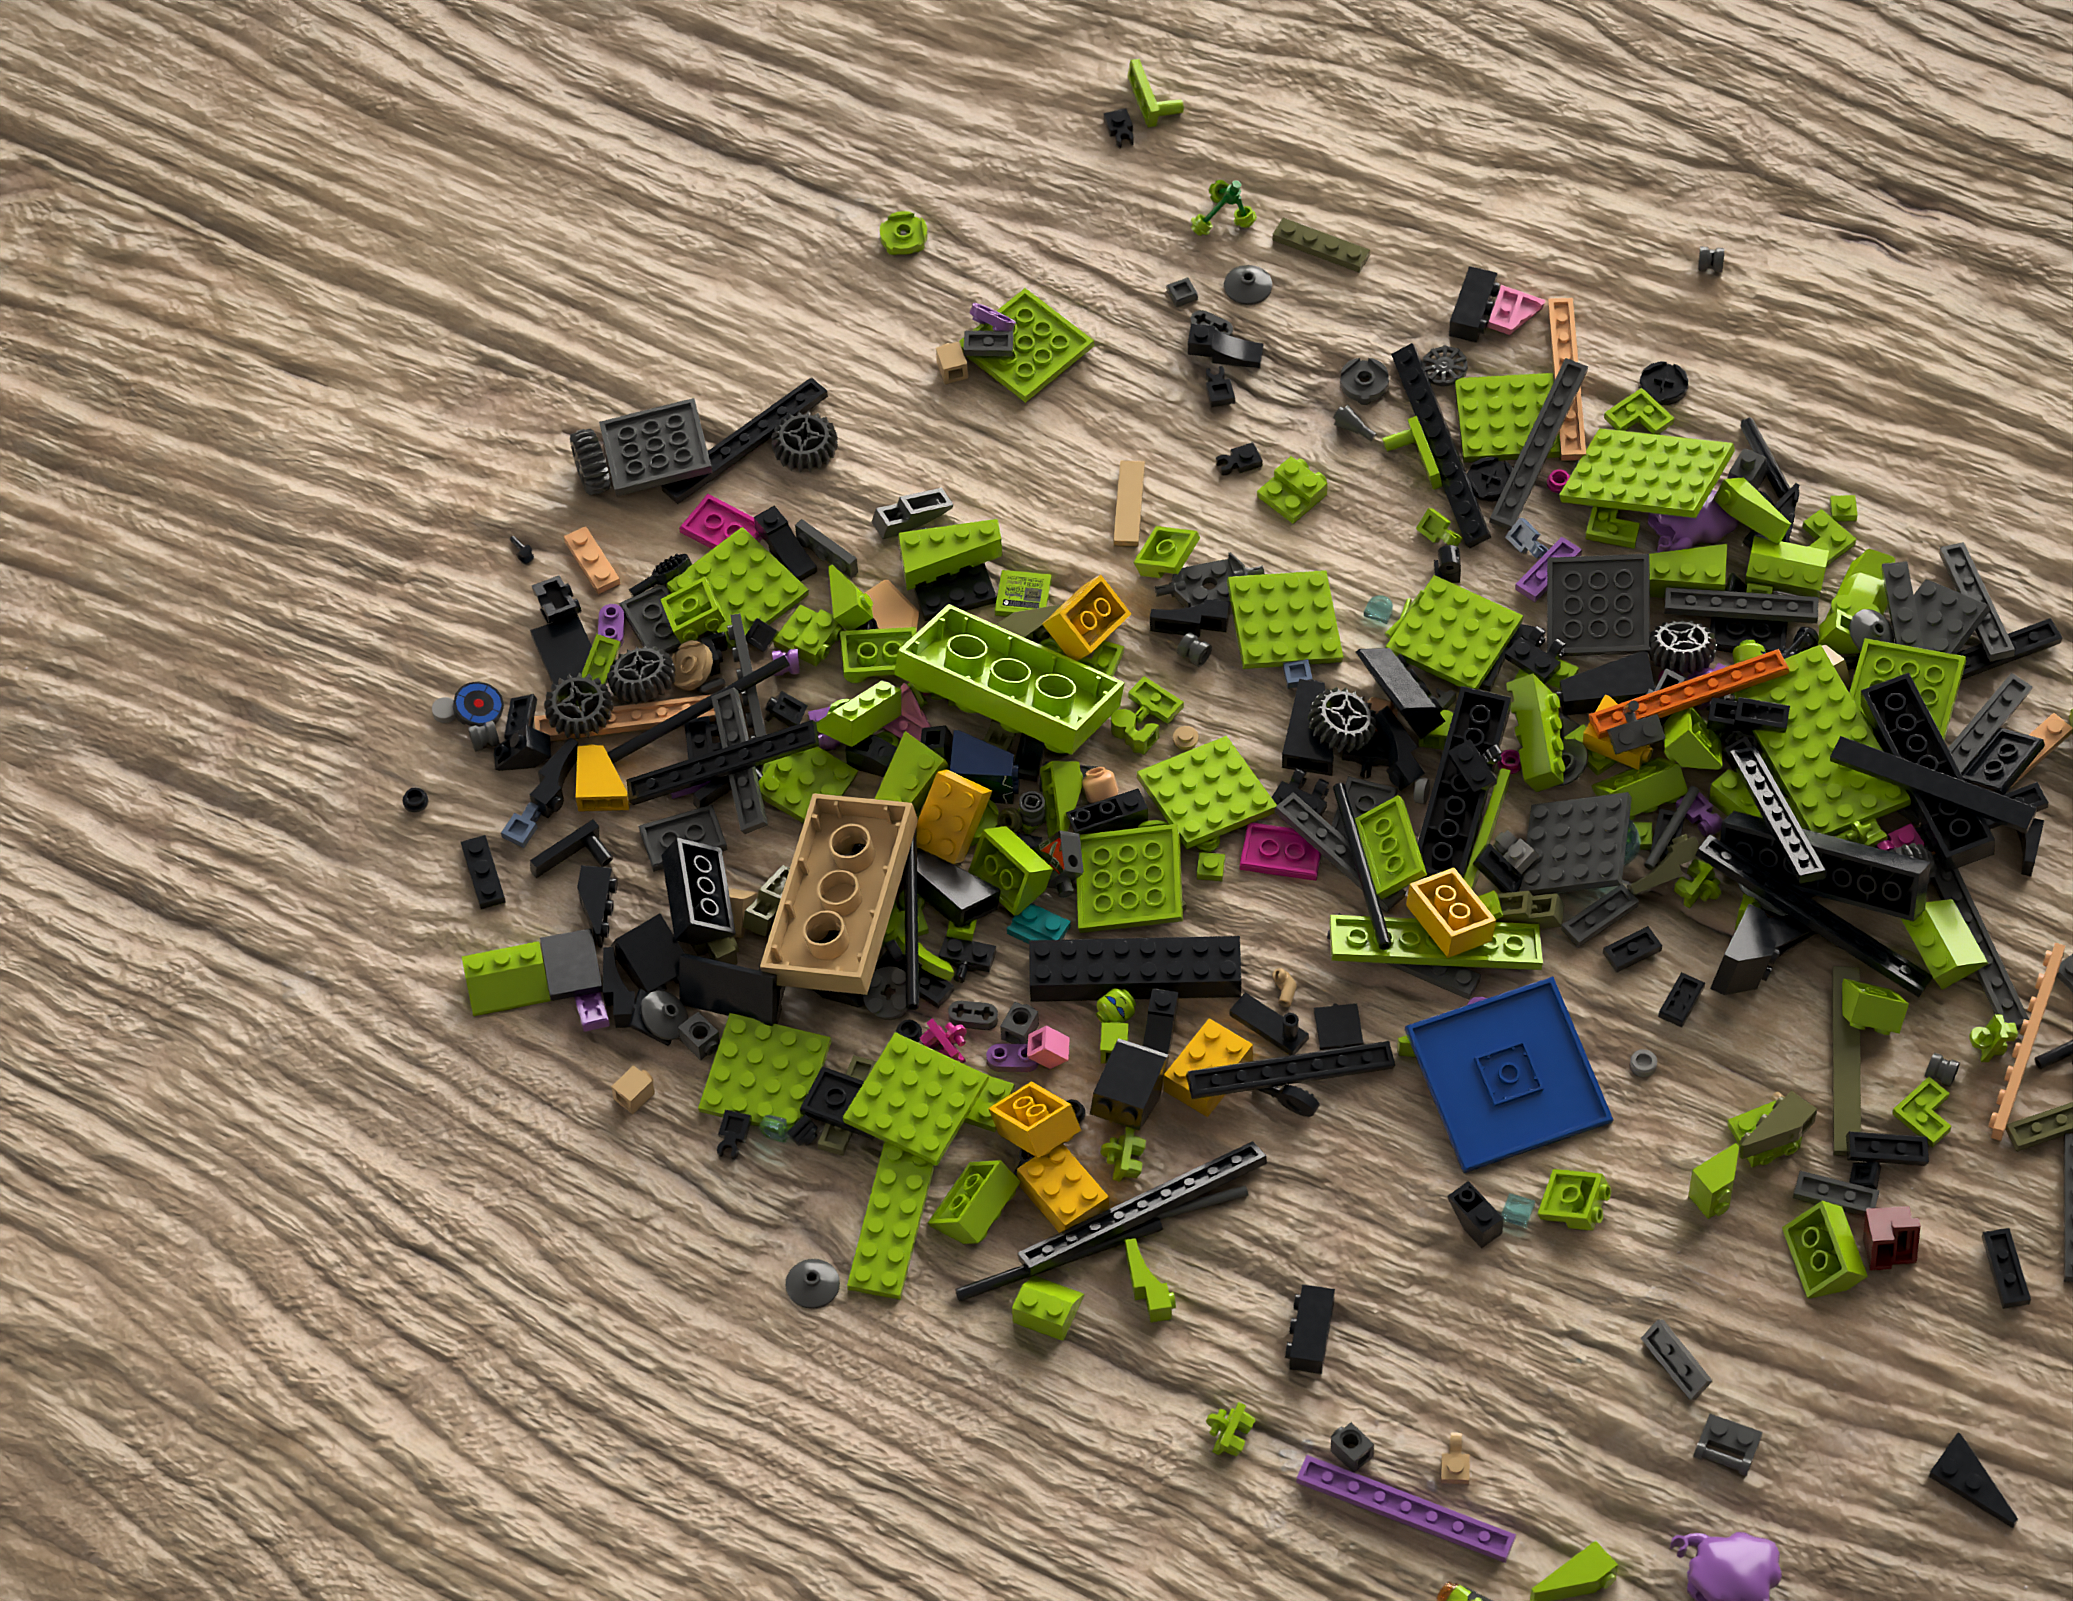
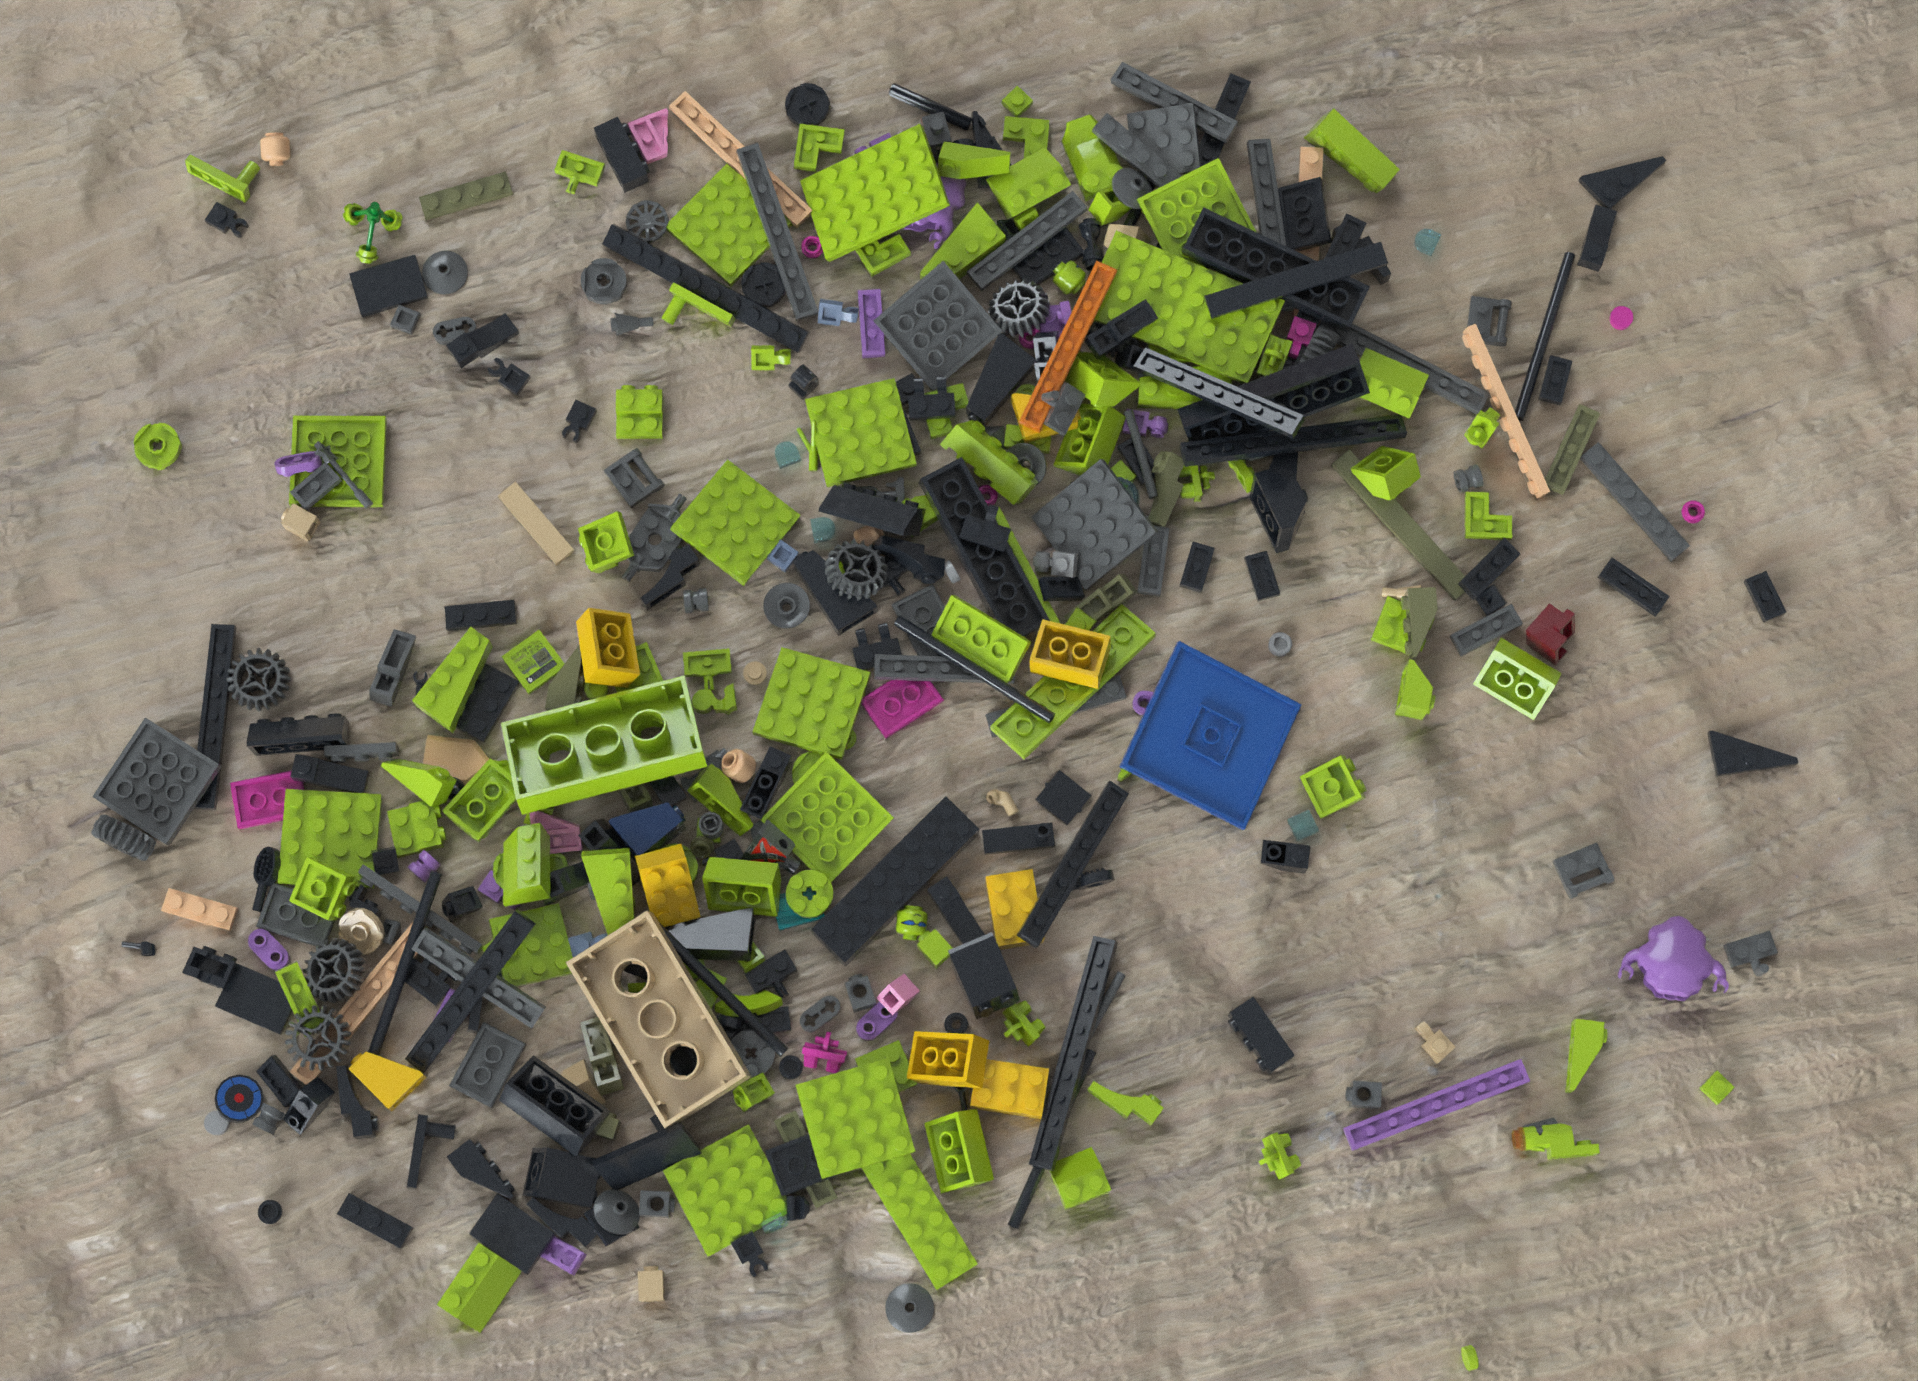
camera: 50 degrees left, 20 degrees up
(521, 828) = (369, 1164): sand blue plate -> none
(772, 487) = (297, 735): none -> black slope
(860, 1022) = (752, 1092): none -> lime bracket
(1019, 328) = (329, 457): none -> dark grey piece
(1020, 532) = (480, 615): none -> black plate
(1055, 905) = (799, 884): none -> lime plate
(1194, 258) = (388, 285): none -> black tile
(1208, 105) = (275, 148): none -> light nougat head
(1210, 866) = (866, 755): lime plate -> none
(1231, 528) = (628, 483): none -> dark grey plate
(1262, 700) = (786, 594): none -> dark grey dish
(1351, 680) = (822, 529): none -> clear light blue tile
(1428, 290) = (579, 170): none -> lime plate
(1676, 1359) = (1500, 841): dark grey plate -> none

